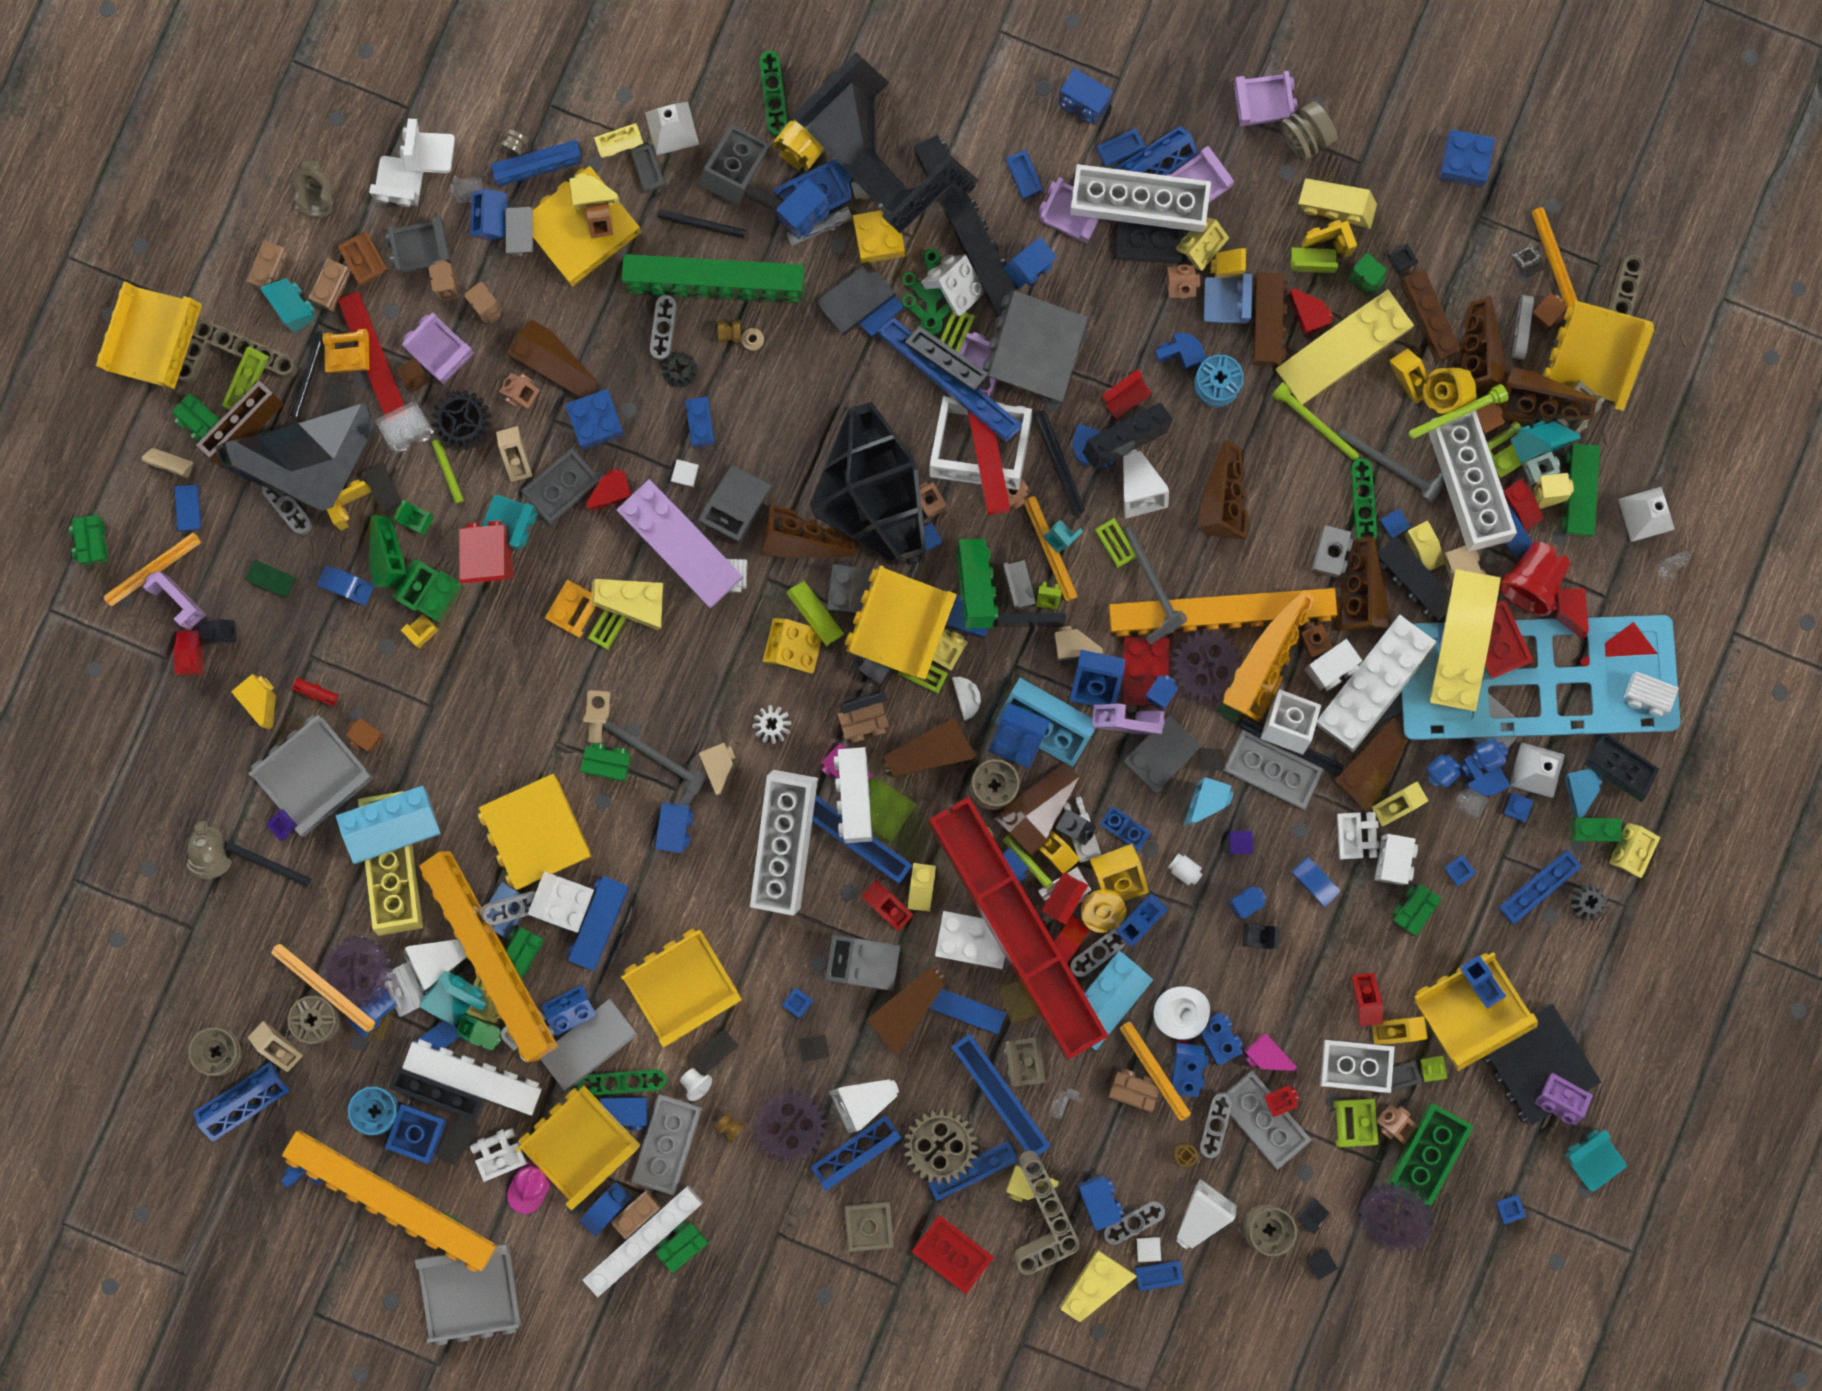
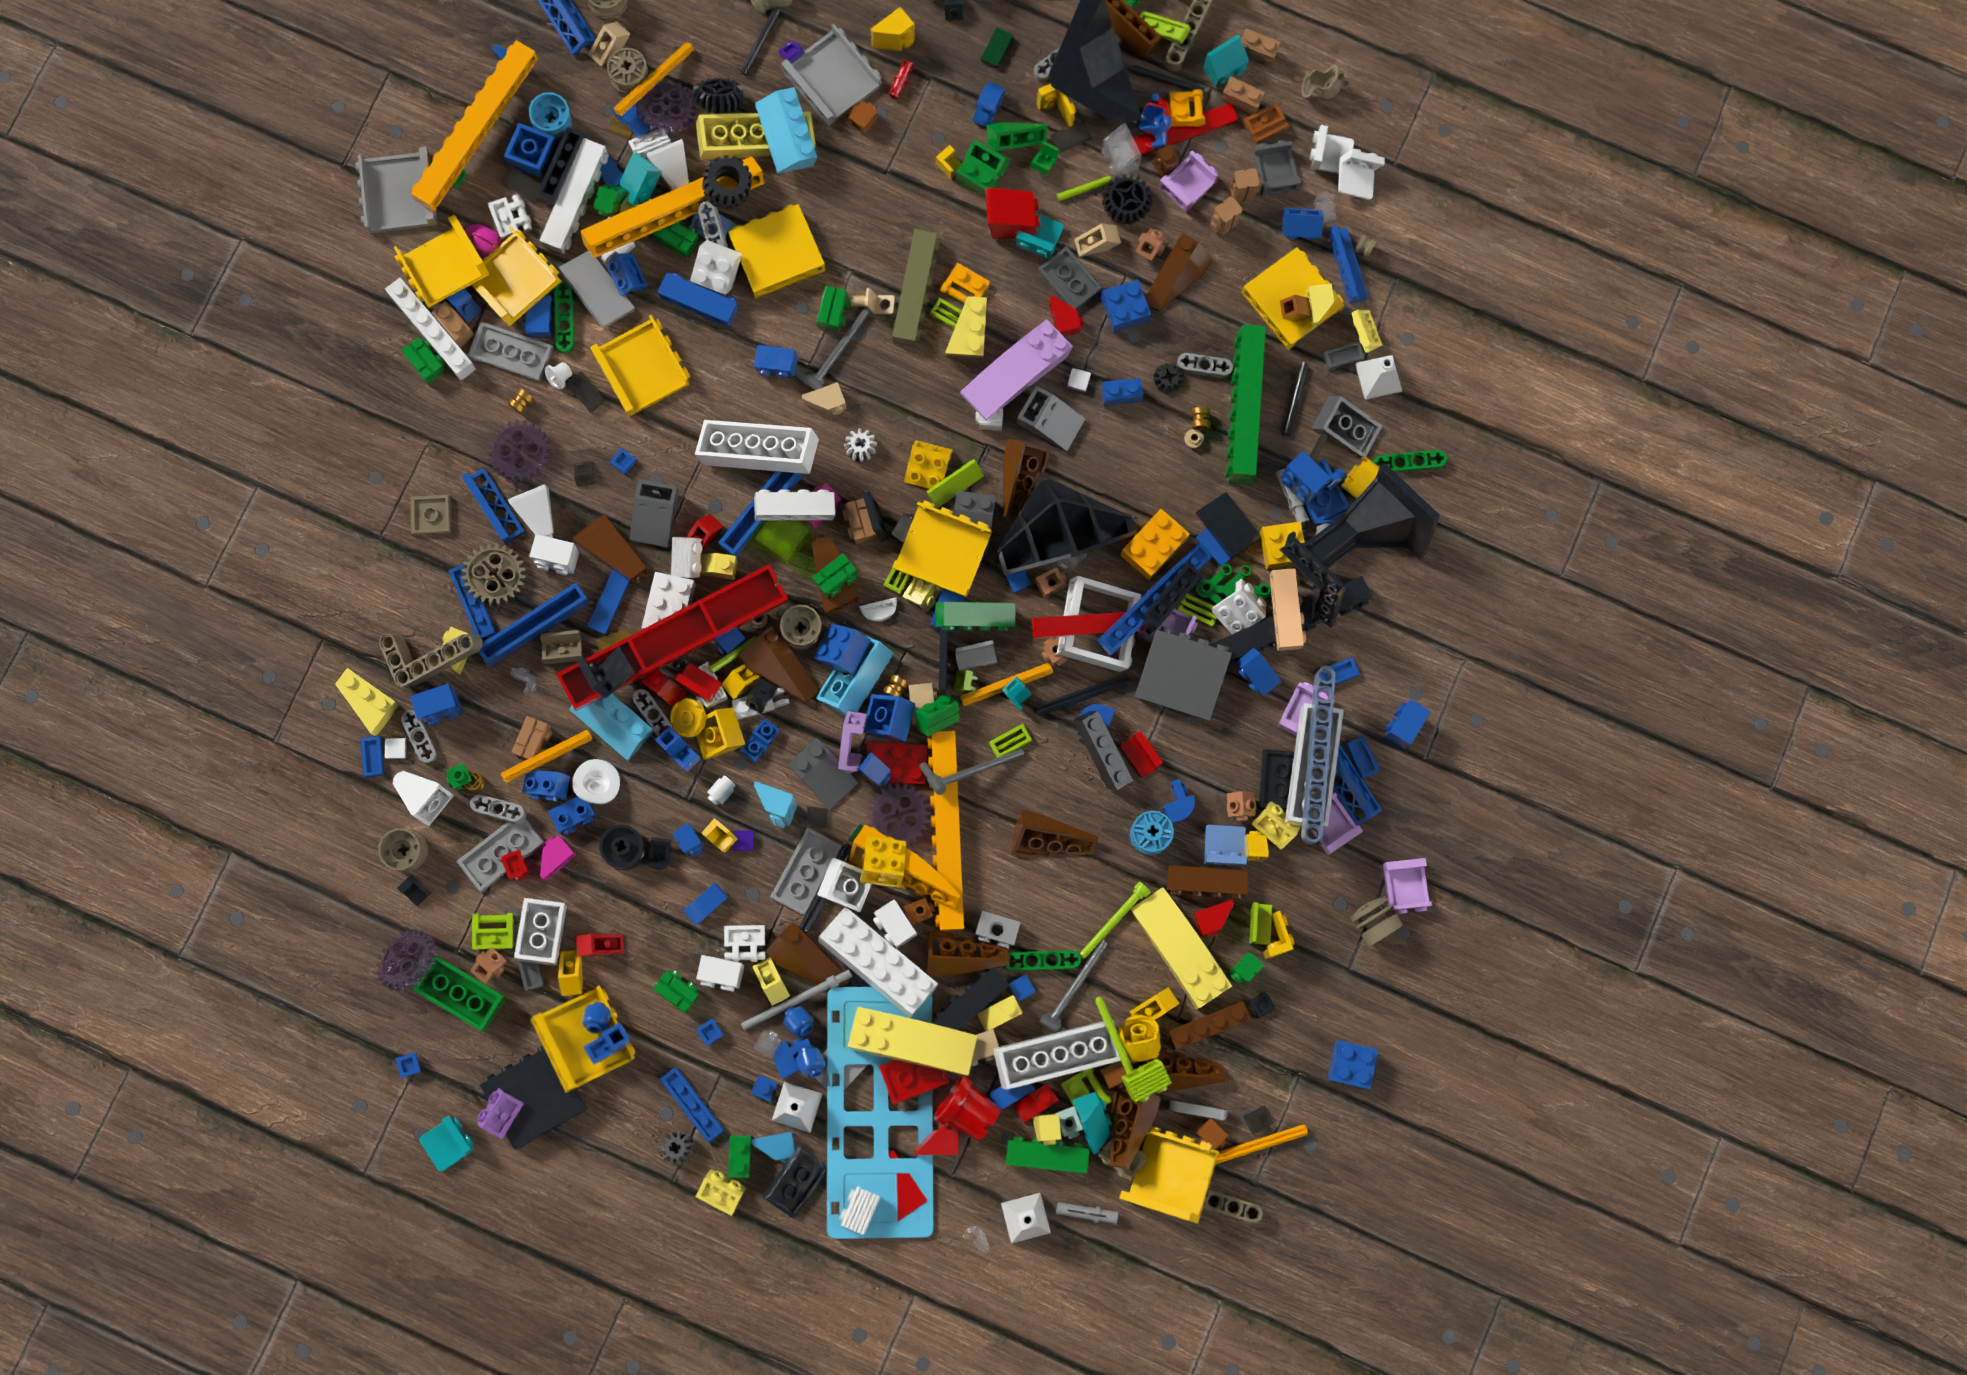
camera: 85 degrees right, 5 degrees down
(343, 908) = (718, 95): none -> black gear
(366, 385) = (1156, 121): none -> blue piece
(445, 880) = (727, 168): none -> black tyre
(519, 230) = (1288, 245): light grey panel -> none
(565, 1230) = (442, 265): none -> yellow panel
(577, 667) = (914, 288): none -> olive brick
(797, 173) = (1336, 478): none -> blue pin
(882, 381) = (1155, 544): none -> light orange brick
(915, 921) = (686, 557): none -> white brick
(917, 1075) = (554, 554): none -> white brick
(935, 745) = (835, 576): none -> green brick
(952, 1254) = (402, 582): red plate -> none
(958, 230) = (1287, 610): none -> light nougat brick
(1059, 674) = (896, 686): none -> pearl gold wheel
(1066, 998) = (609, 673): none -> black bracket
(1093, 624) = (937, 715): none -> green brick
(1142, 486) = (1058, 761): white slope -> none
(1143, 185) = (1318, 745): none -> sand blue beam
(1182, 1171) = (458, 777): none -> green bracket
(1238, 868) = (719, 835): none -> yellow panel
(1266, 677) = (883, 862): none -> yellow bracket
(1268, 972) = (612, 841): none -> black wheel
(1322, 1264) = (372, 897): black tile -> none
(1338, 202) = (1311, 947): light yellow wedge -> none
(1399, 734) = (832, 982): none -> light grey bar
(1433, 1068) = (536, 1002): lime tile -> none
(1452, 996) = (596, 1017): none -> blue head
(1501, 379) = (1146, 1081): none -> lime brick
(1640, 438) = (1063, 1209): none -> light grey pin

